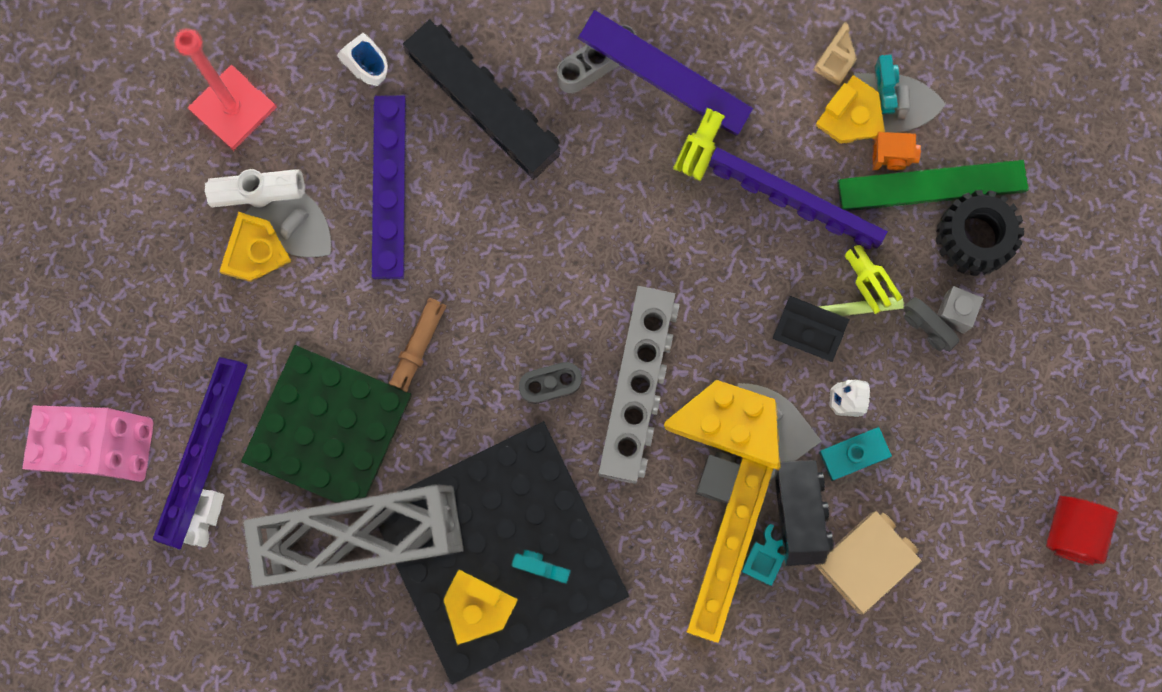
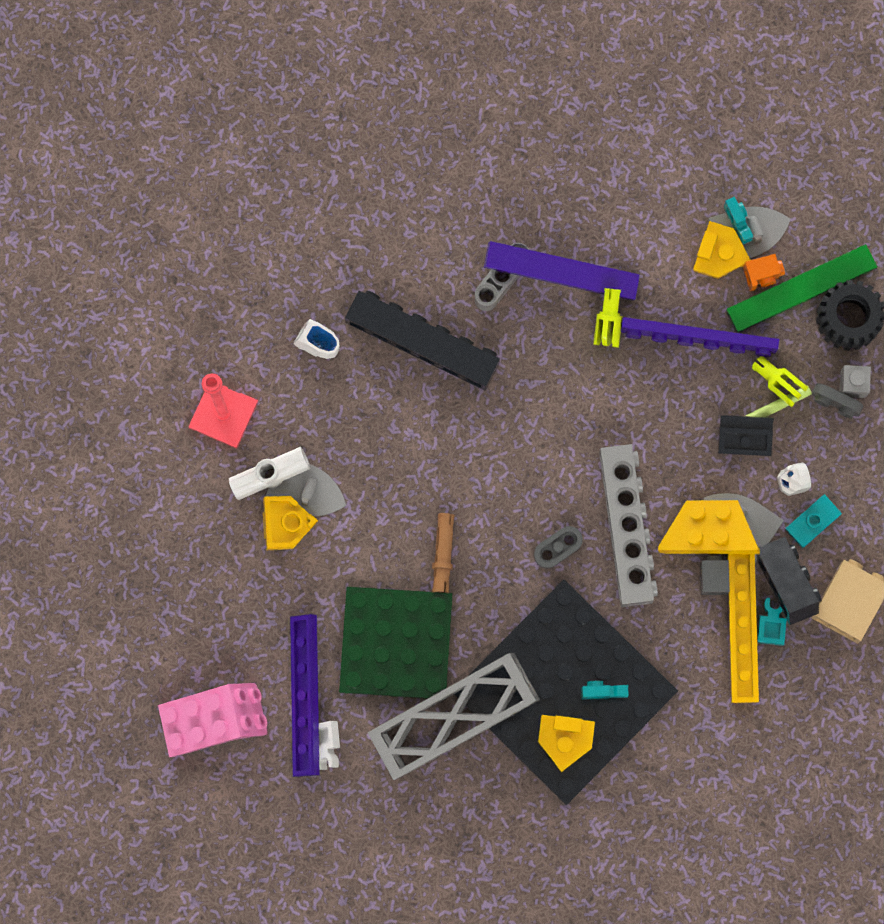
camera: 20 degrees left, 0 degrees up
(389, 187) = (373, 435): dark purple plate -> none
(838, 57) = (692, 209): tan tile -> none

